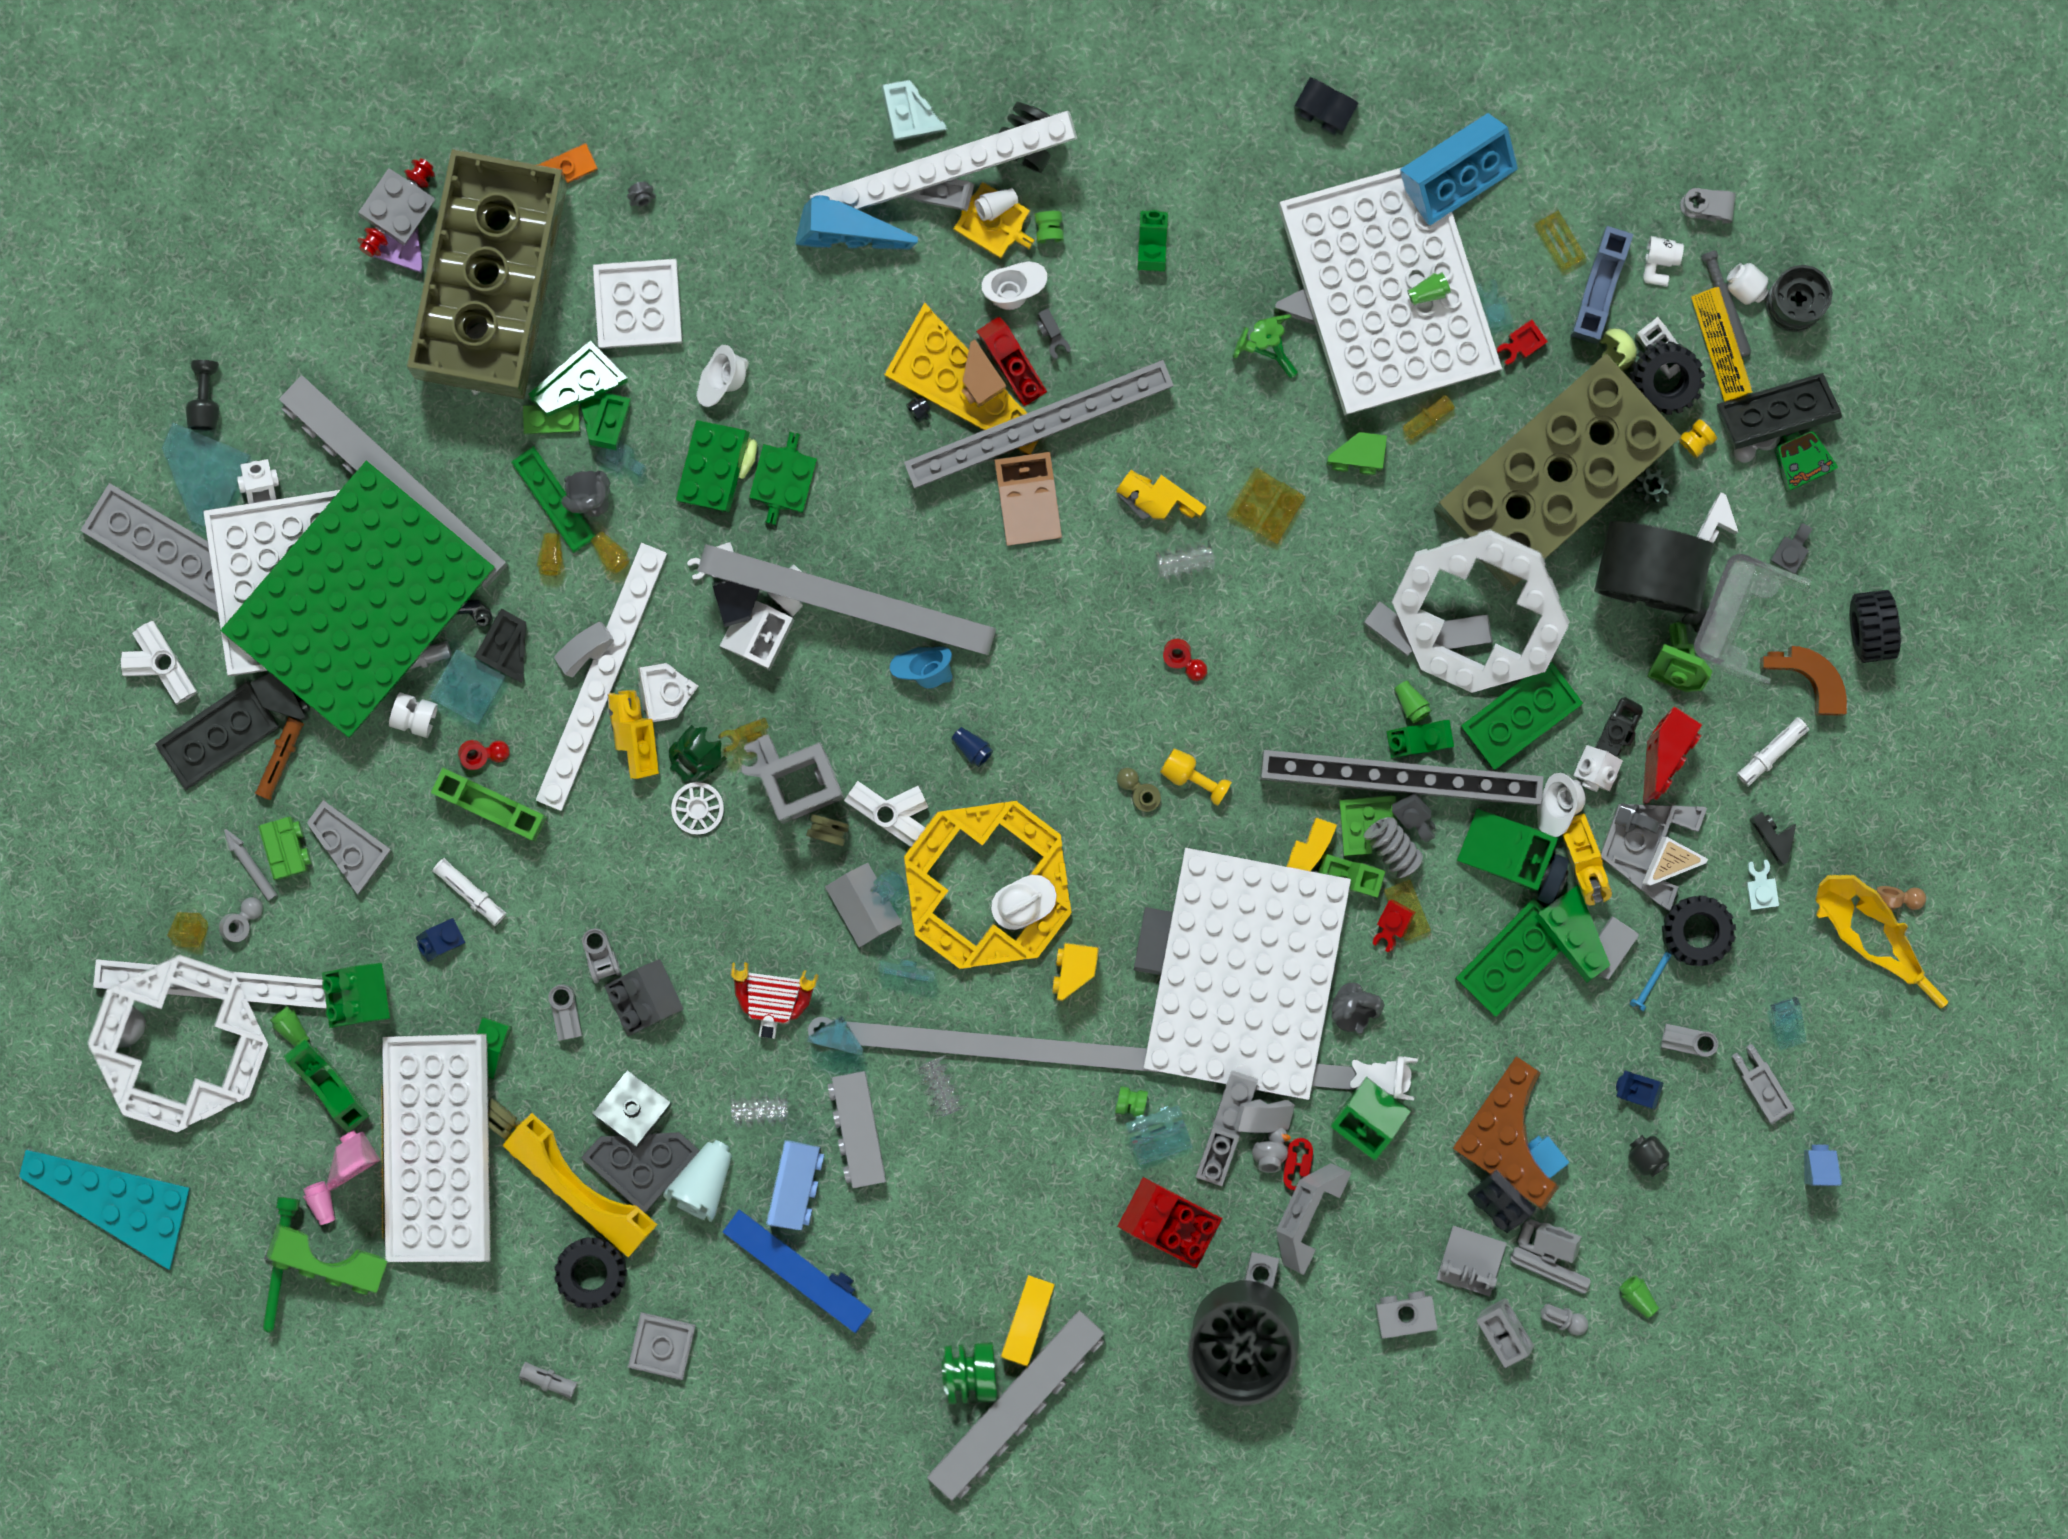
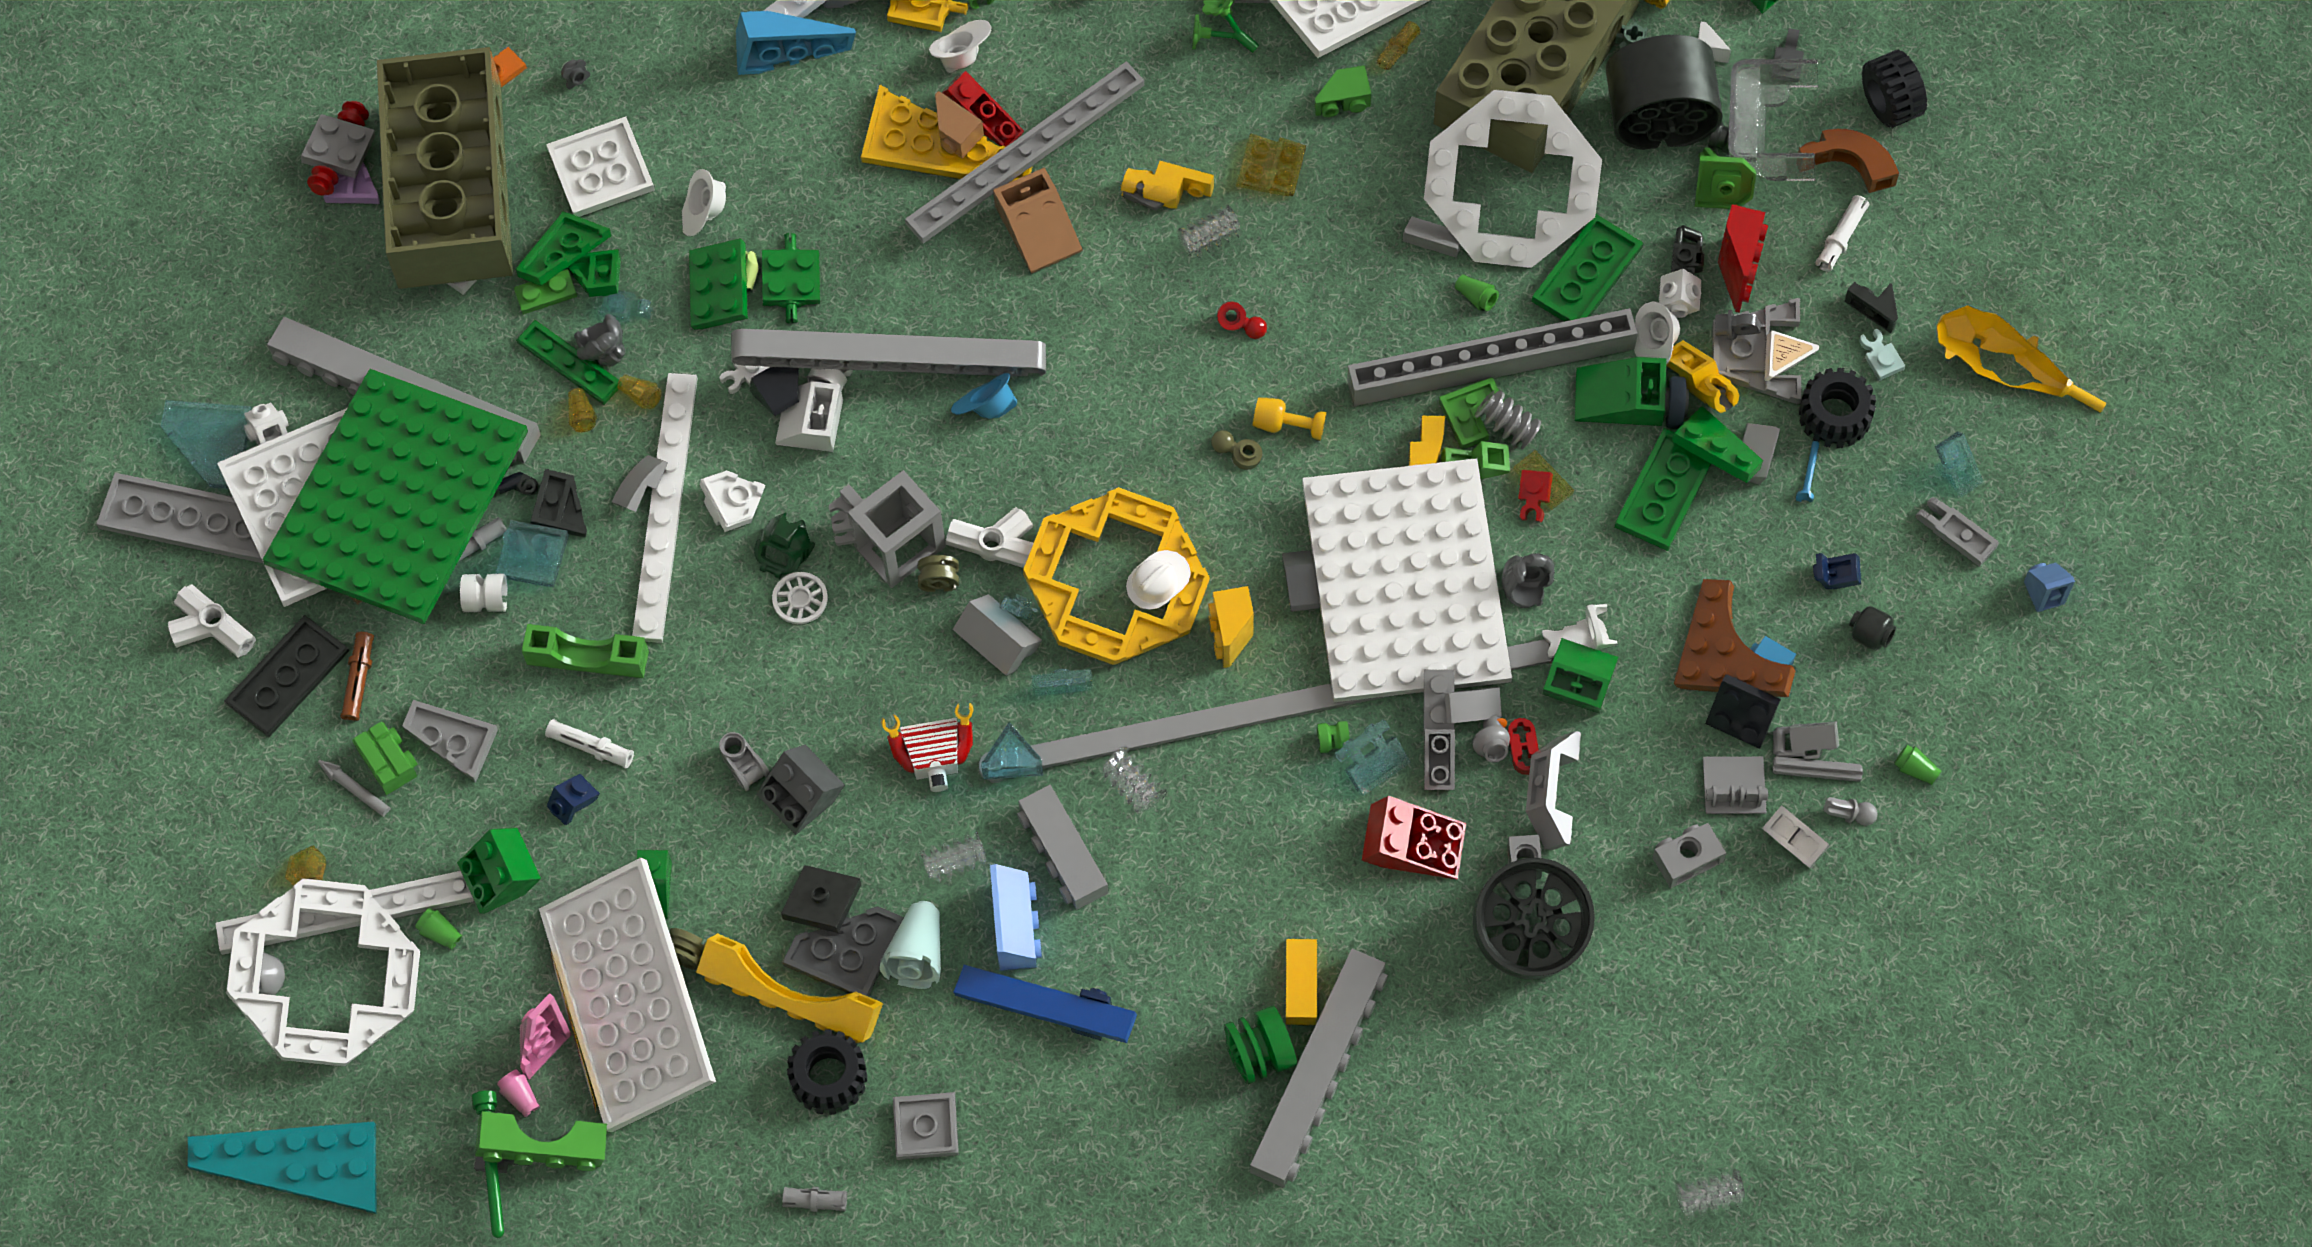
camera: 15 degrees left, 20 degrees down
(201, 412) = (192, 381): pearl dark grey piece -> none
(250, 909) = (366, 829): light grey plate -> none
(279, 698) = (340, 616): pearl dark grey slope -> none
(328, 1085) = (490, 969): green arch -> none
(497, 751) = (579, 605): red plate -> none
(566, 1015) = (723, 827): light grey piece -> none
(633, 733) = (712, 542): yellow plate -> none
(749, 731) = (820, 512): clear yellow plate -> none
(919, 407) = (905, 175): black plate -> none
(974, 748) = (1061, 459): dark blue cone -> none
(1049, 327) = (1009, 72): dark grey plate -> none
(1416, 813) = (1517, 385): dark grey plate -> none
(1420, 739) = (1504, 319): green slope -> none
(1465, 632) = (1505, 216): light grey slope -> none
(1686, 1040) = (1867, 512): light grey piece -> none
(1894, 897) = (2032, 321): medium nougat plate -> none

